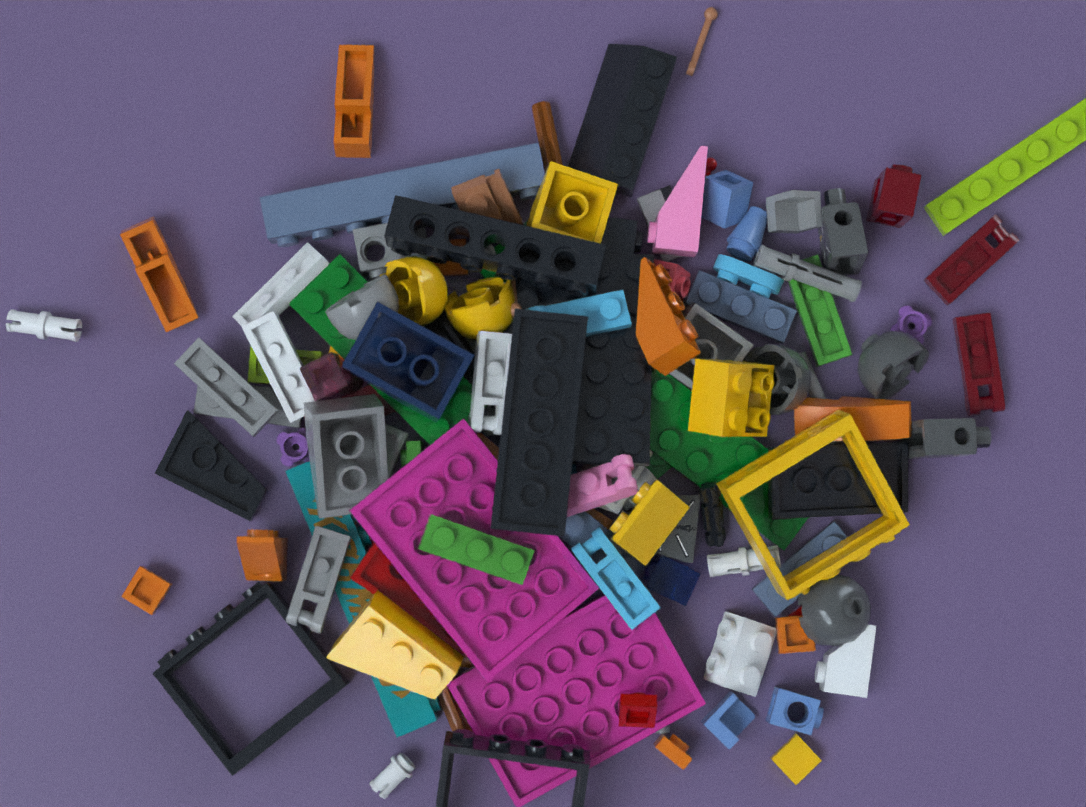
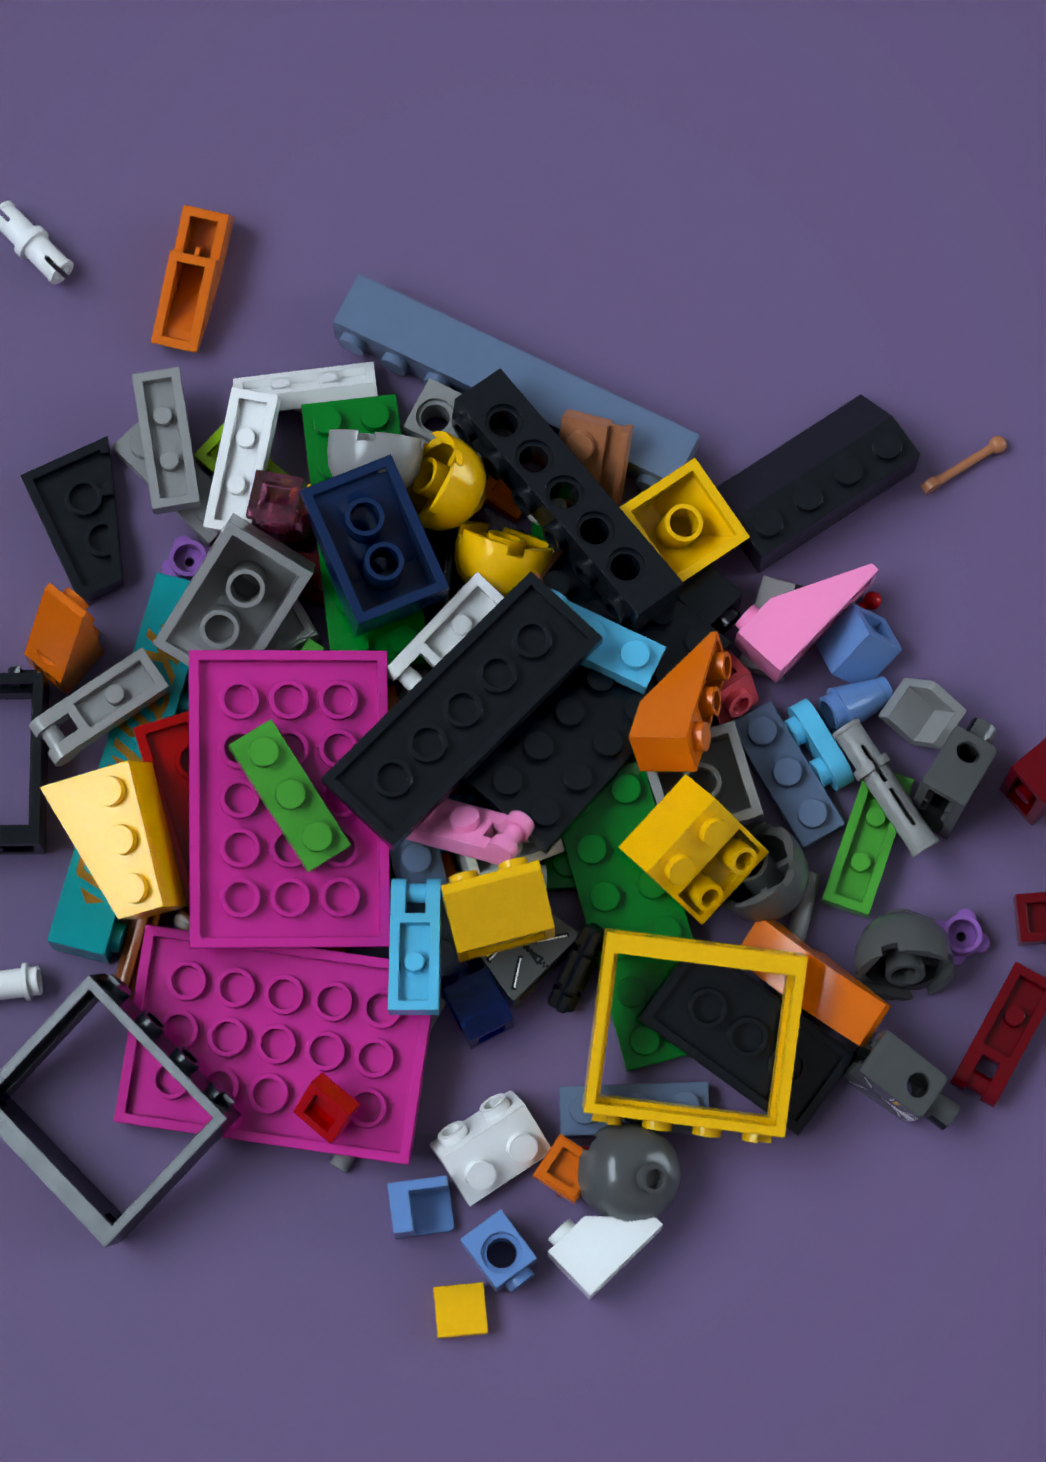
camera: 40 degrees right, 10 degrees down
(354, 101) = (538, 254): orange slope -> none
(546, 133) = (720, 434): dark orange axle -> none
(674, 749) = (335, 1191): orange plate -> none
(738, 561) = (569, 1045): white pin -> none

